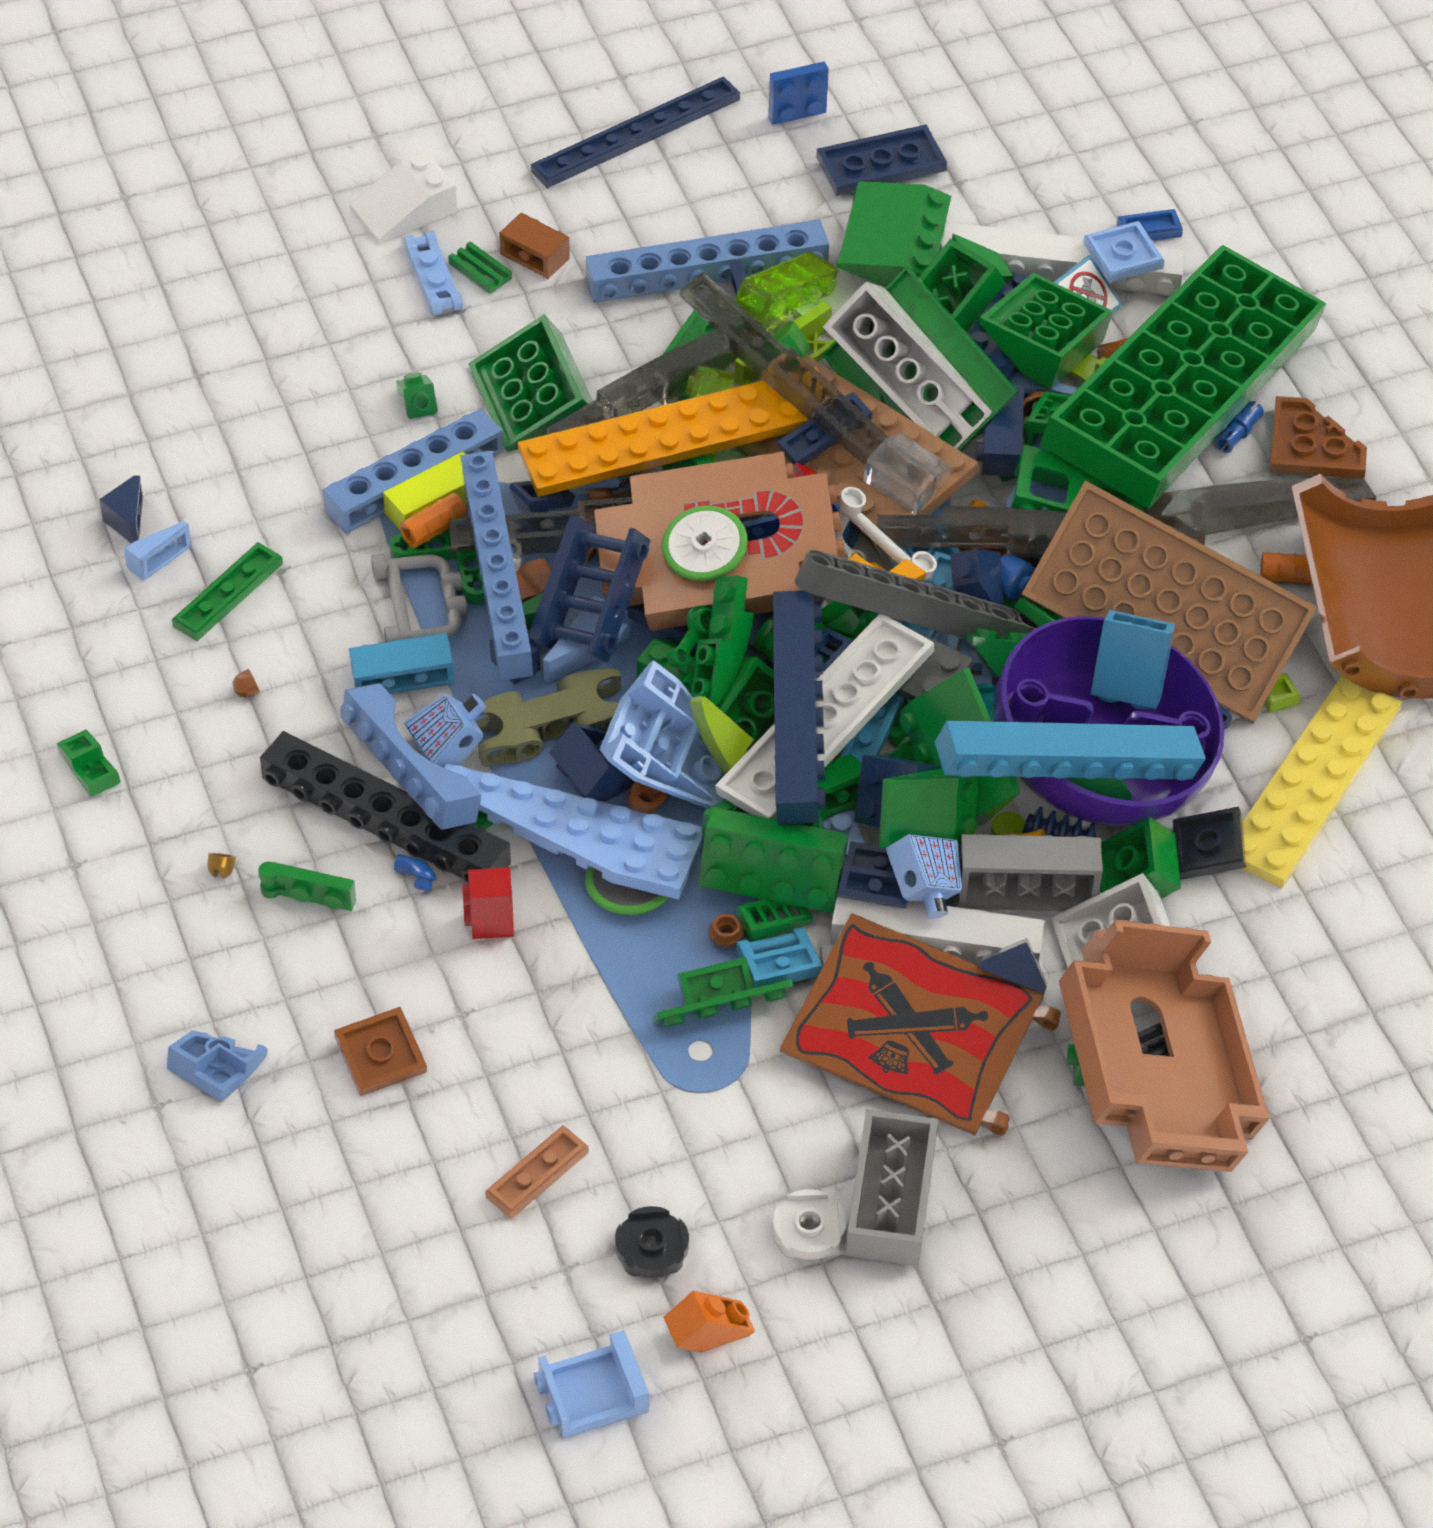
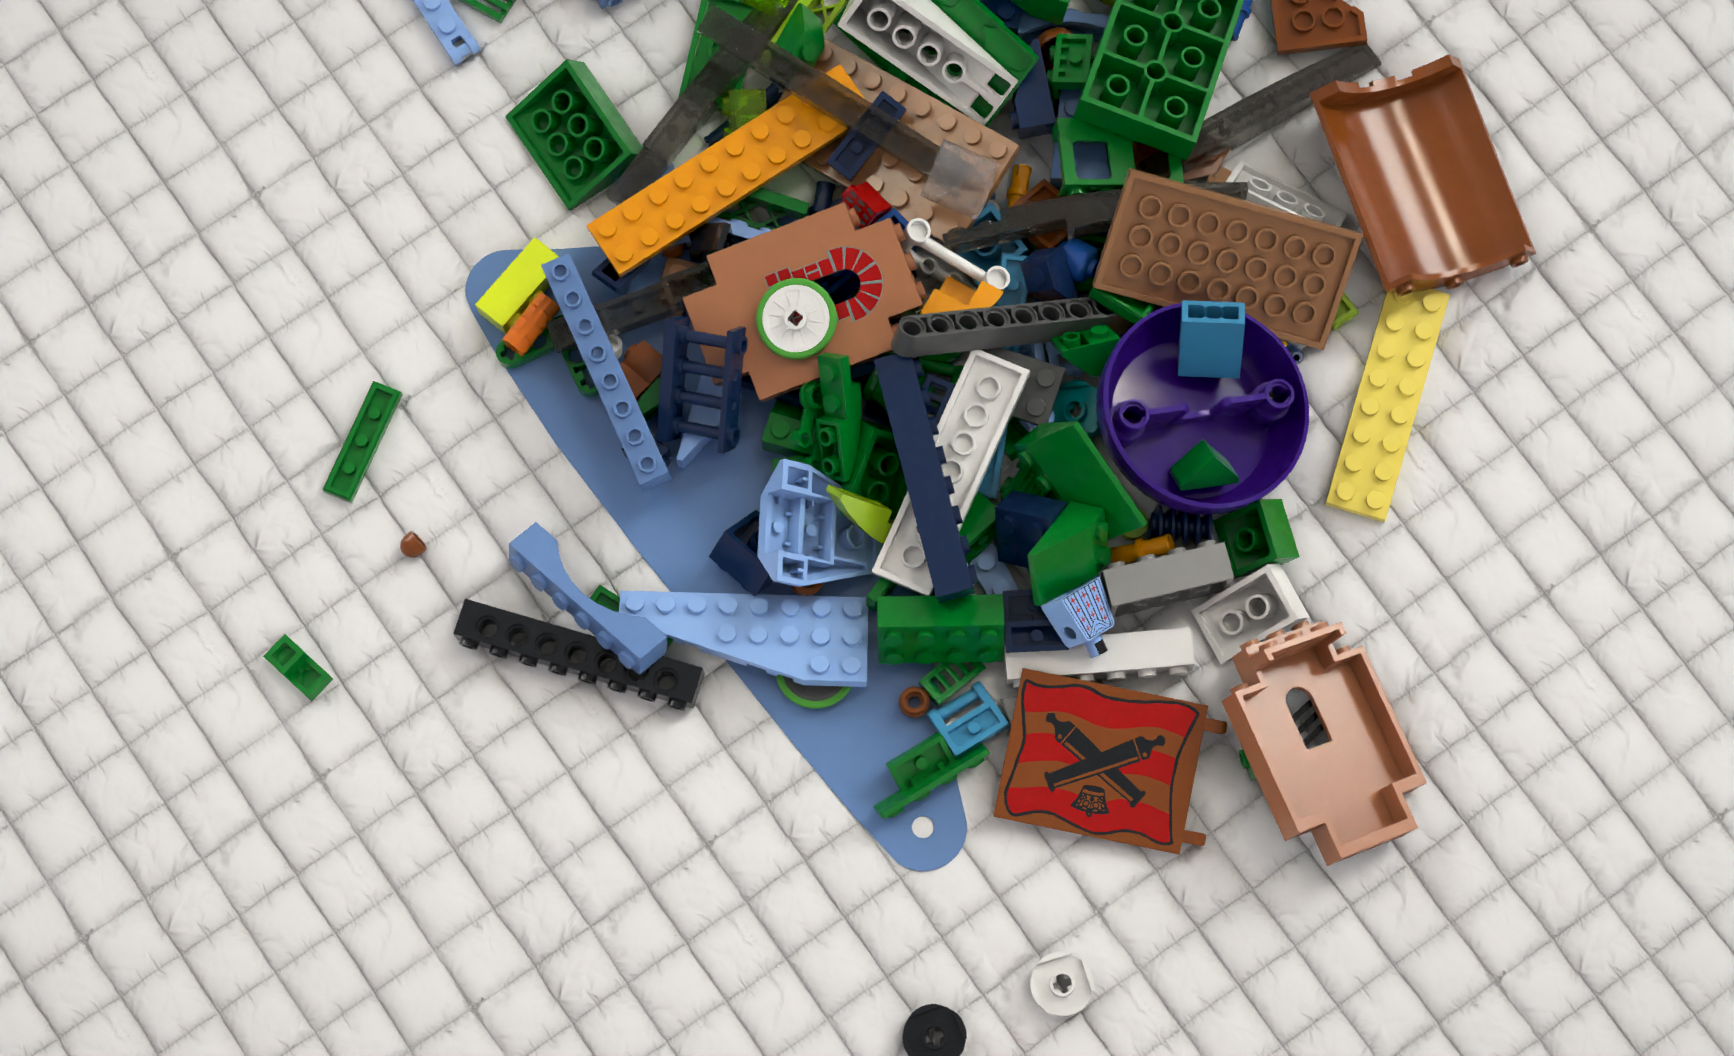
camera: 10 degrees left, 25 degrees up
(123, 508) = (239, 376): dark blue slope -> none
(156, 550) = (282, 420): light blue slope -> none
(213, 1062) = (510, 955): medium blue slope -> none
(221, 862) = (451, 746): pearl gold hinge -> none
(306, 886) = (533, 754): green plate -> none
(360, 495) = (451, 324): medium blue brick -> none
(380, 1051) = (649, 906): dark orange plate -> none
(404, 663) = (547, 489): dark azure brick -> none
(417, 394) = (469, 169): green bracket -> none
(418, 868) = (628, 706): blue arm -> none
(447, 729) = (611, 559): light blue torso -> none
(450, 583) = (575, 406): light grey bar -> none
(489, 903) = (702, 737): red brick -> none
(527, 724) = (680, 524): olive piece -> none
(537, 1172) = (817, 989): nougat tile -> none
(891, 1187) = (1124, 934): light grey brick -> none
(1016, 964) = (1176, 684): dark blue slope -> none
(1069, 750) = (1182, 474): dark azure brick -> none
(1209, 843) = (1314, 498): black tile -> none
(1285, 568) = (1314, 169): orange axle -> none

